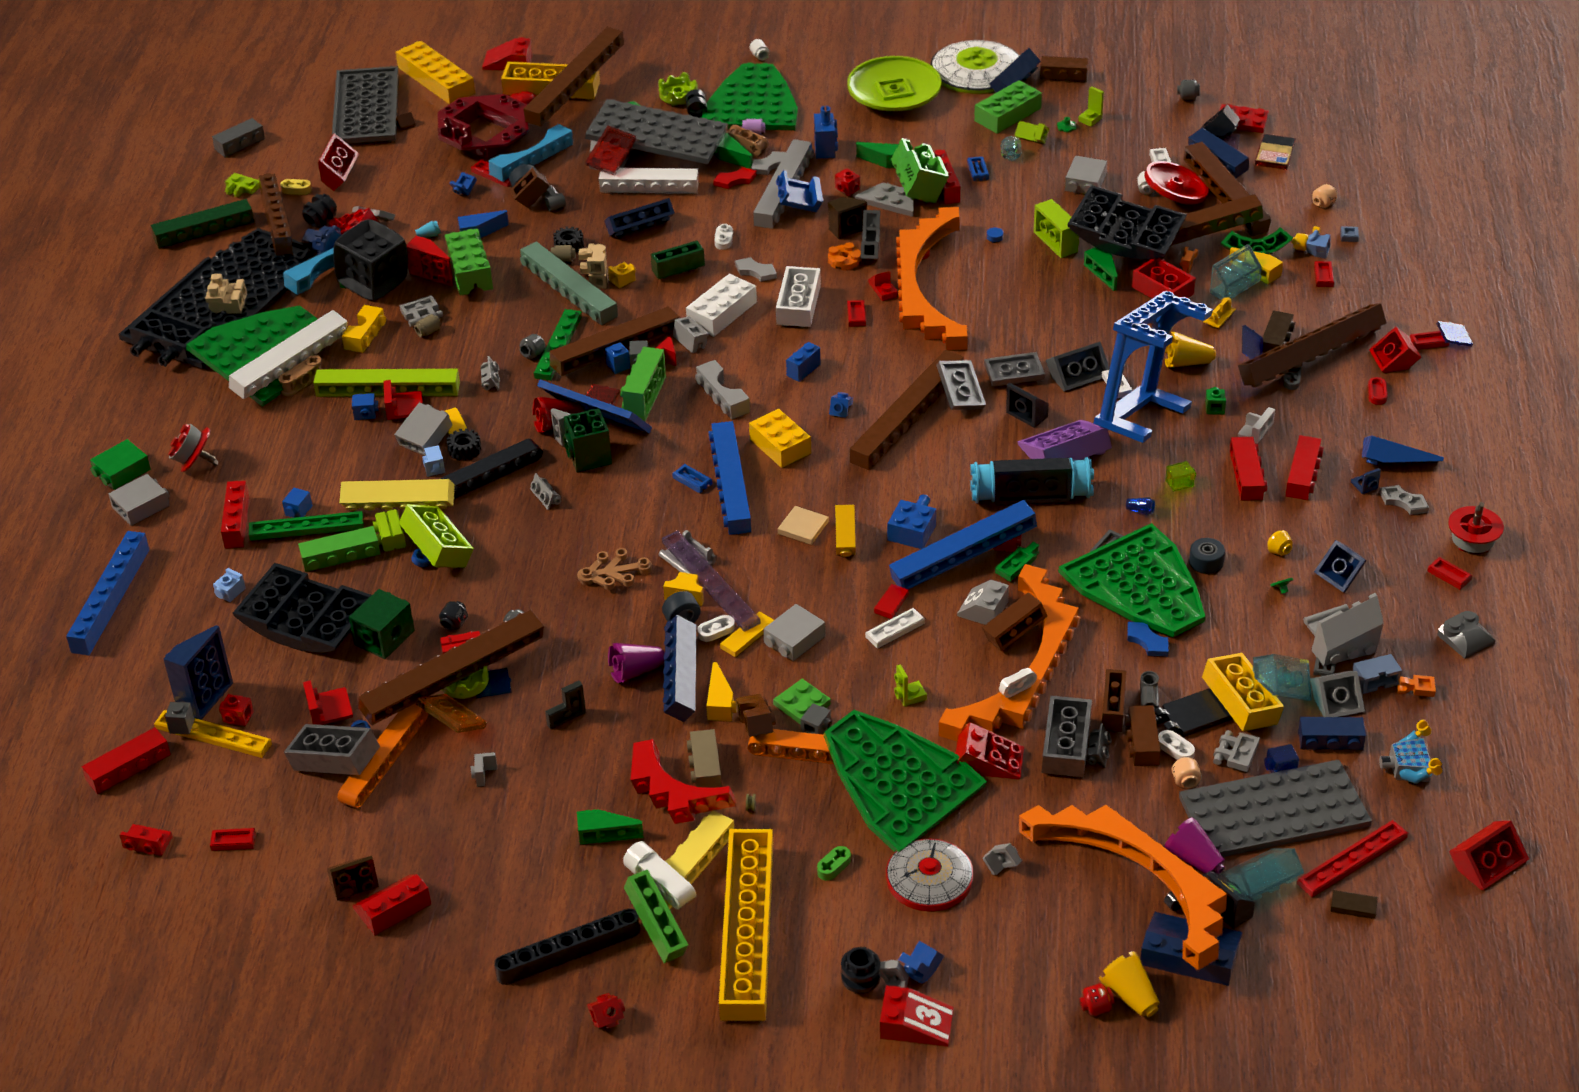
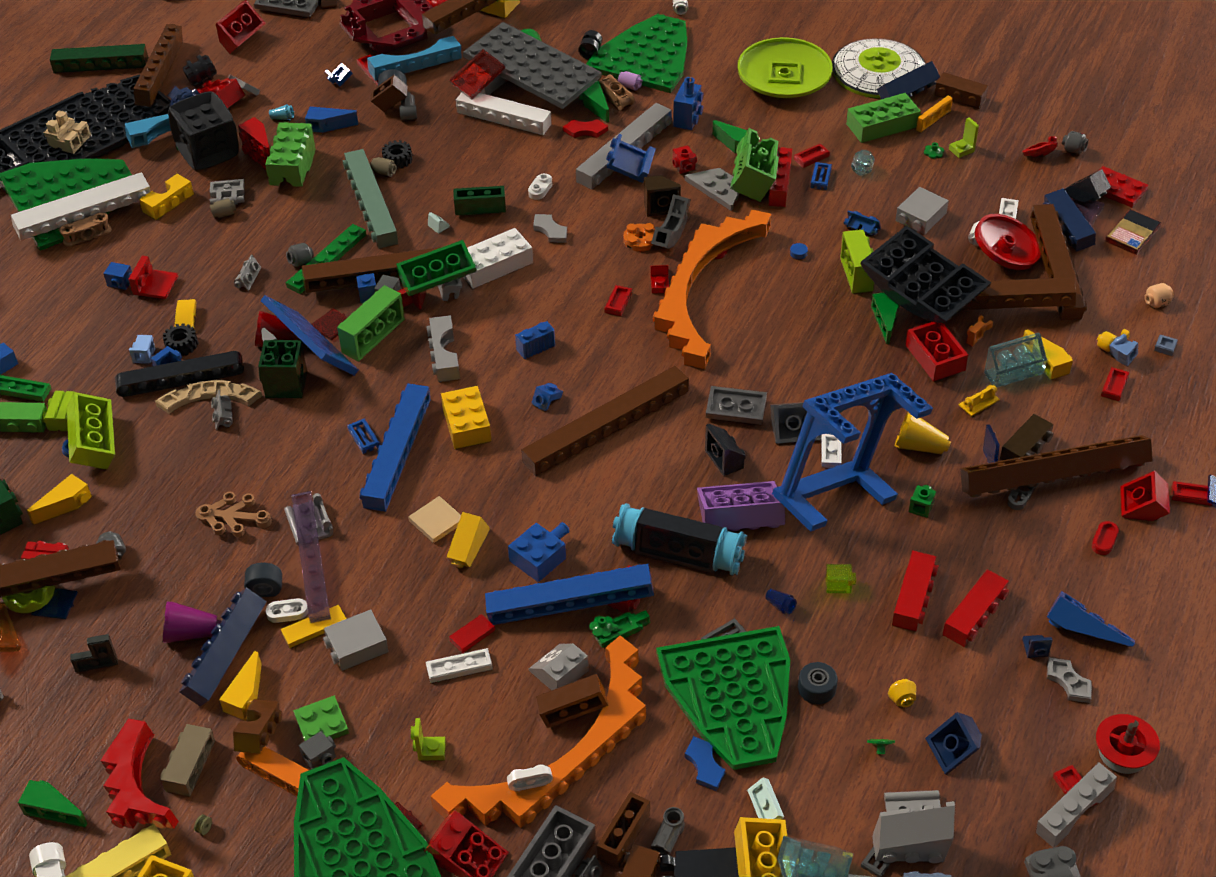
camera: 20 degrees right, 5 degrees up
(239, 184) = (152, 28): lime hinge -> none
(295, 186) = (199, 42): light yellow beam -> none
(368, 381) = (163, 258): lime brick -> none
(396, 494) = (86, 376): light yellow brick -> none
(423, 428) = (152, 313): light grey brick -> none
(446, 590) = (62, 499): none -> yellow slope
(453, 615) = (59, 519): black head -> none
(463, 459) = (166, 356): none -> blue bracket
(493, 494) = (205, 390): none -> tan tile
(595, 266) = (401, 187): tan hips -> none
(622, 274) = (424, 201): yellow brick -> none
(639, 217) = (471, 147): dark blue brick -> none
(645, 289) = (437, 223): none -> light aqua slope
(676, 88) = (577, 26): lime plate -> none
(682, 321) = (436, 268): none -> green brick
(684, 582) = (283, 555): yellow brick -> none
(765, 165) = (620, 122): light grey tile -> none
(798, 296) = (568, 268): white brick -> none
(960, 153) = (811, 155): none -> red tile
(961, 385) = (669, 409): flat silver plate -> none
(1004, 563) = (602, 626): none -> green plant
(1031, 196) = (869, 224): none -> blue hinge
(1032, 132) = (893, 150): lime bracket -> none
(1051, 93) = (934, 113): none -> light orange tile
(1161, 101) = (1042, 148): none -> red arm
(1211, 647) = (765, 800): none -> light aqua plate
(1257, 425) = (952, 542): white panel -> none
(1265, 245) = (1060, 336): green brick -> none
(1463, 570) = (1063, 815): none -> light grey arch

